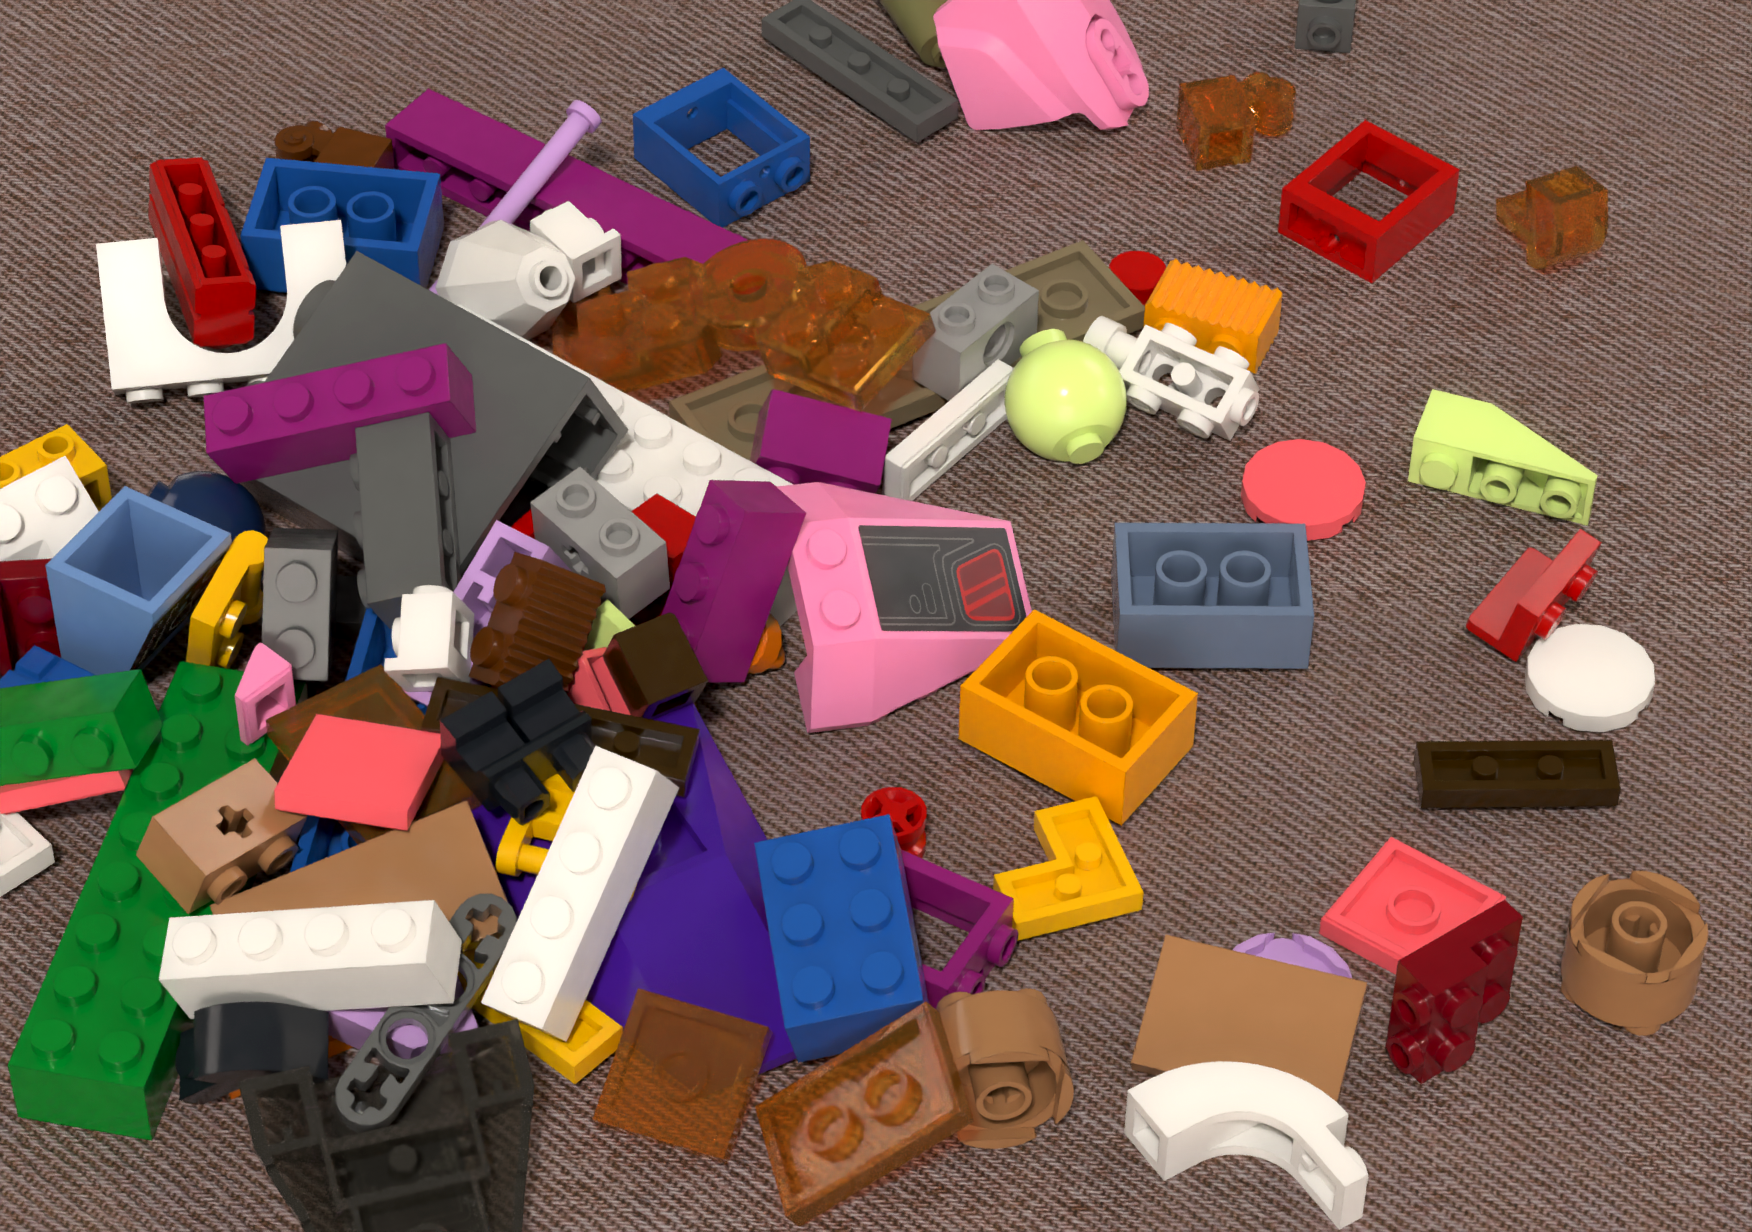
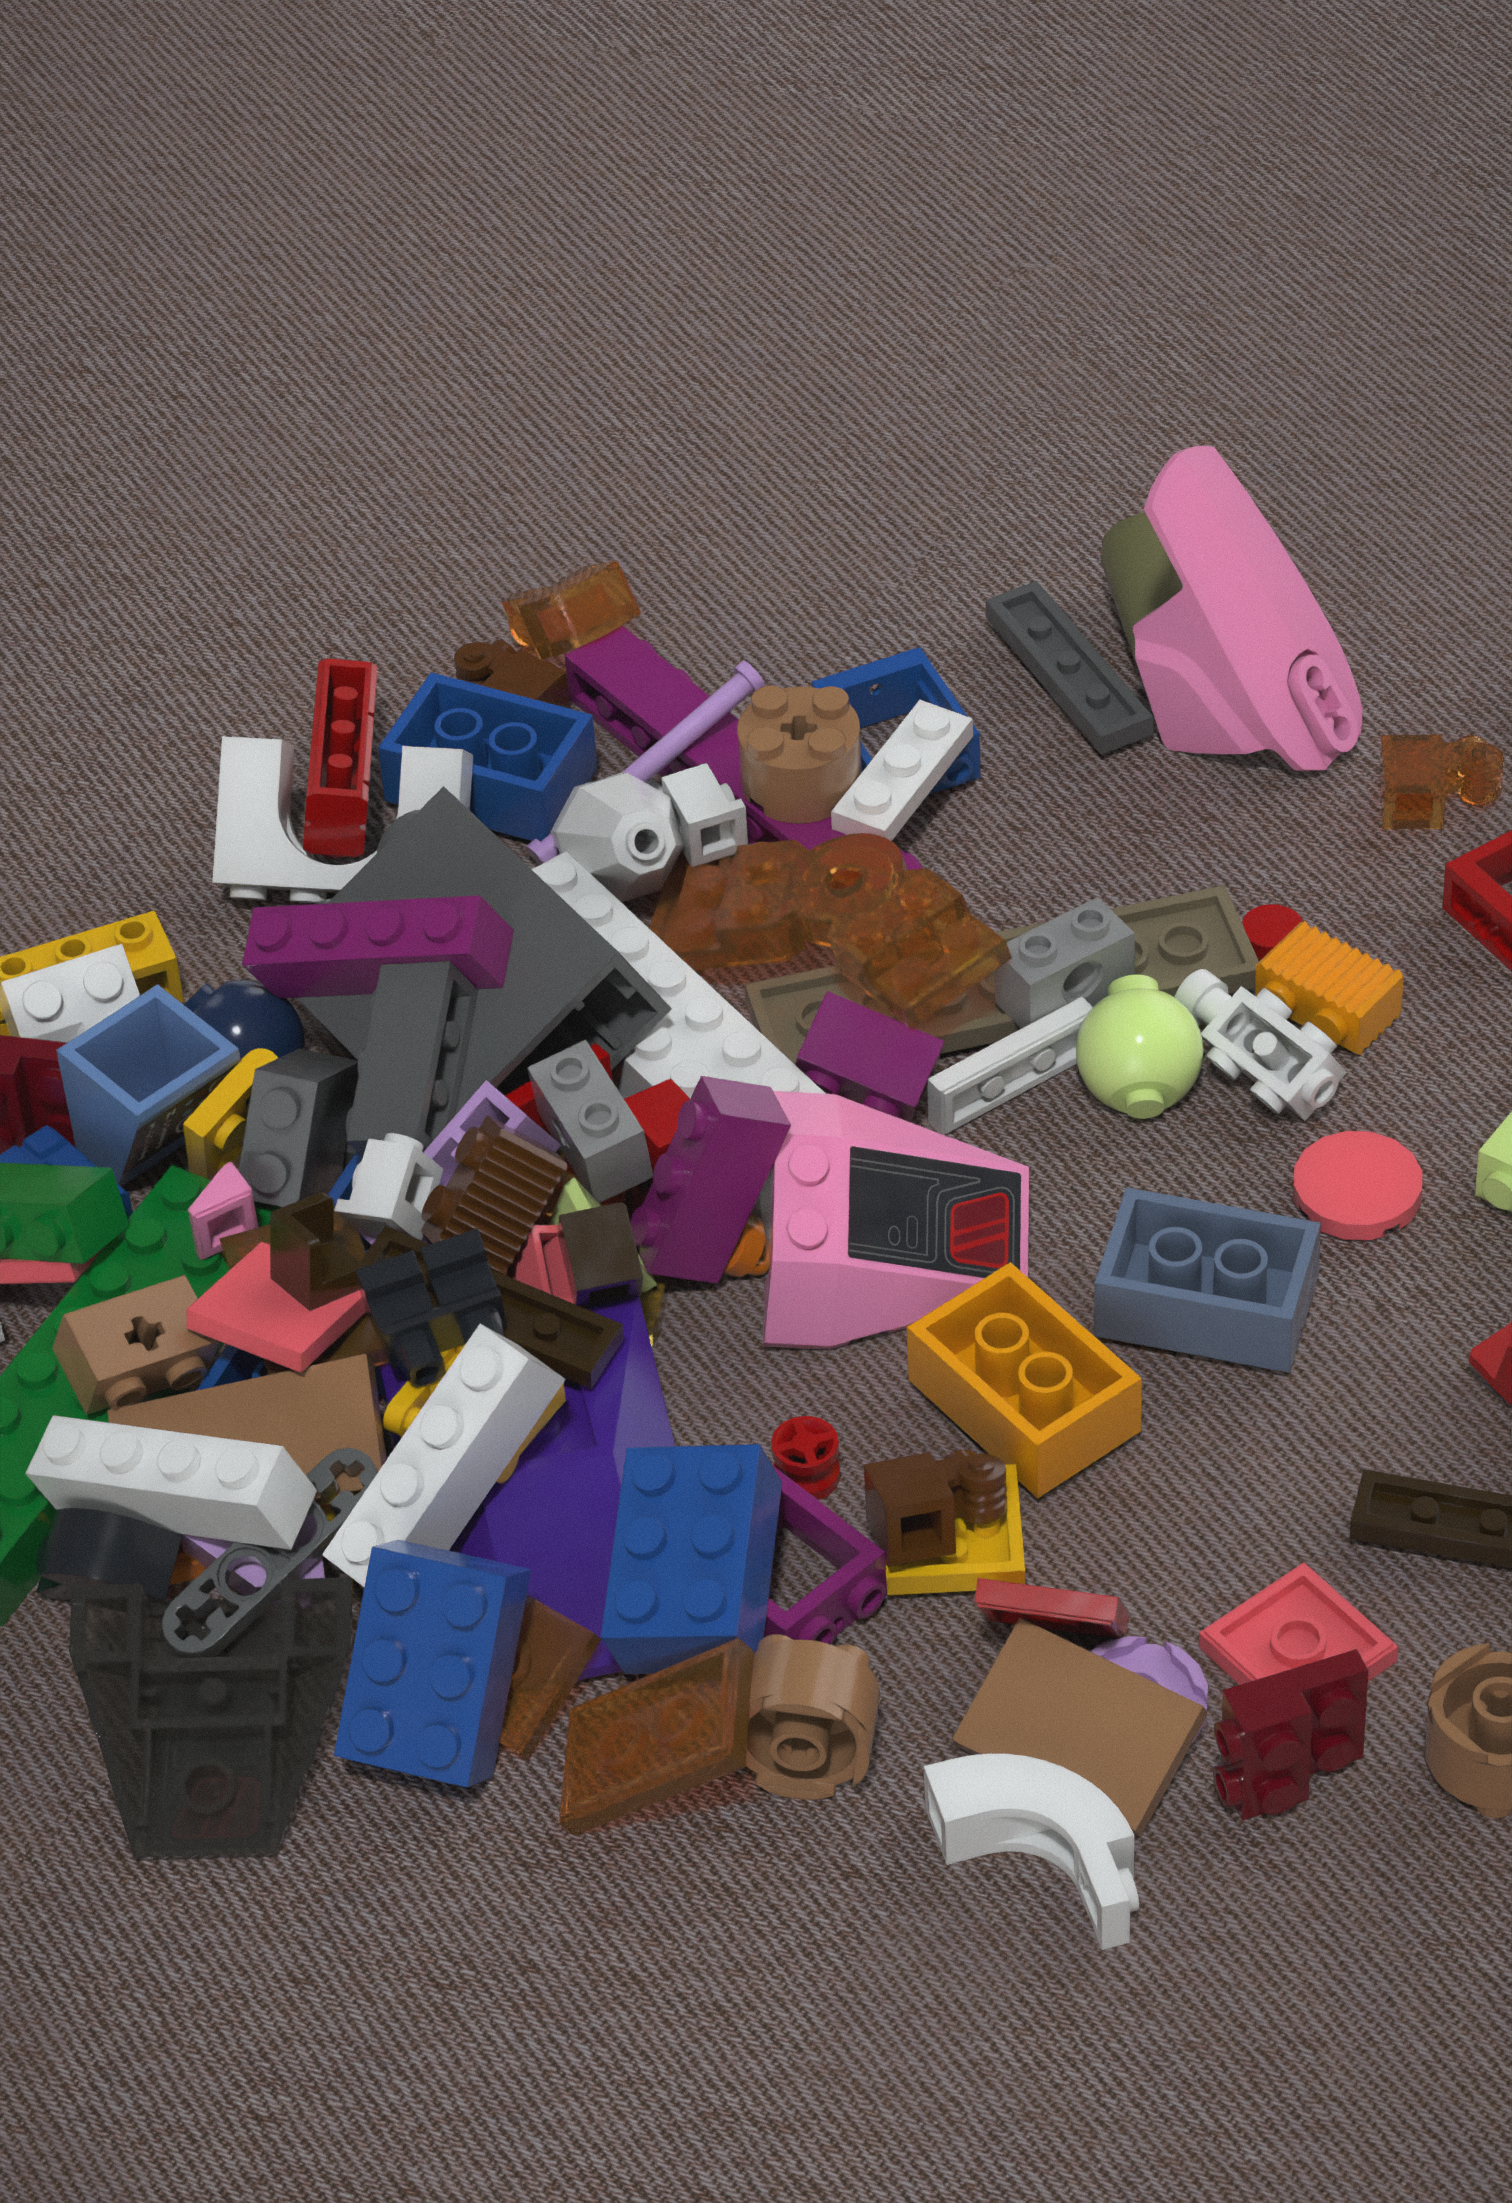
camera: 20 degrees right, 0 degrees up
(377, 84) = (571, 610): none -> clear orange brick
(378, 719) = (306, 1256): none -> dark brown panel
(626, 1085) = (432, 1662): none -> blue brick
(657, 176) = (798, 751): none -> medium nougat brick
(755, 181) = (903, 772): none -> white plate
(1033, 846) = (916, 1501): none -> reddish brown brick
(1191, 919) = (1052, 1608): none -> red tile

